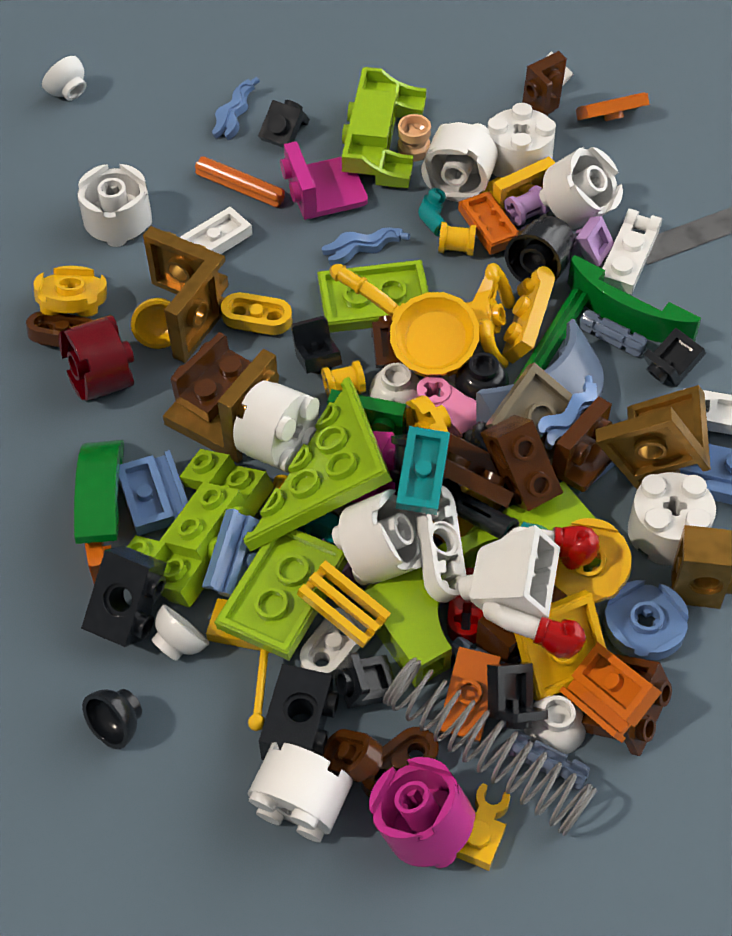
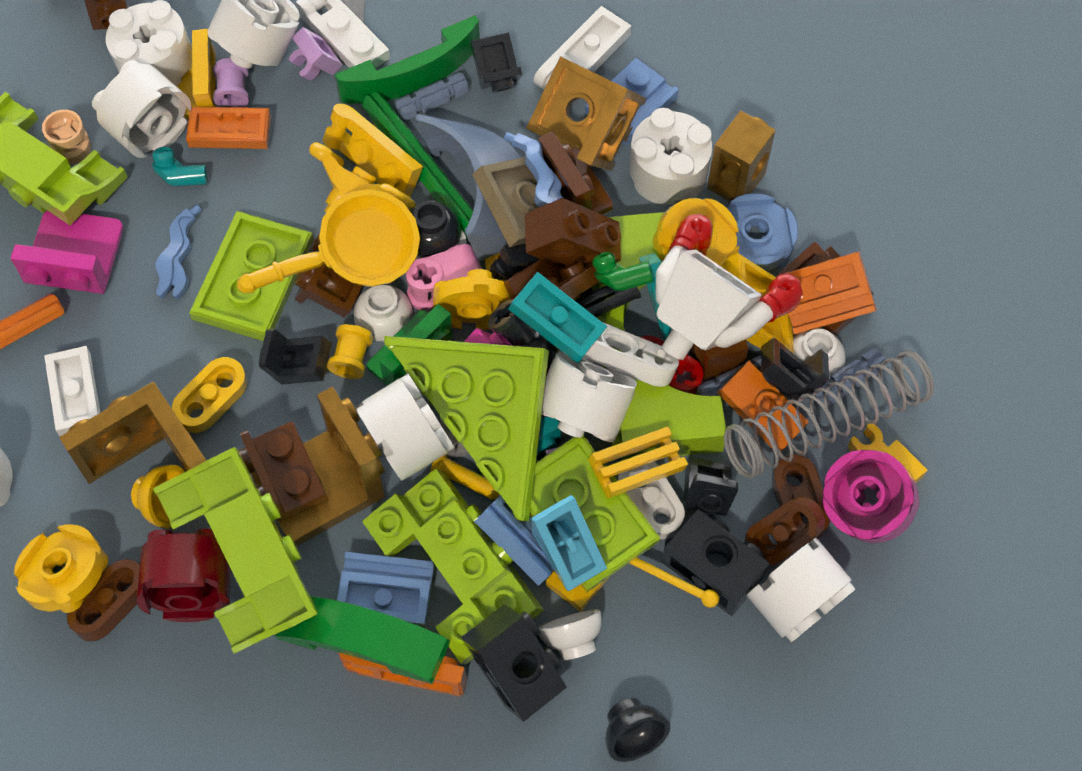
camera: 65 degrees left, 10 degrees up
(127, 371) = (250, 542): none -> lime bracket
(238, 577) = (567, 543): none -> medium azure slope
(457, 239) = (232, 165): yellow bush -> none
(503, 507) = (619, 277): none -> green arm
(540, 244) = (304, 98): black piece -> none

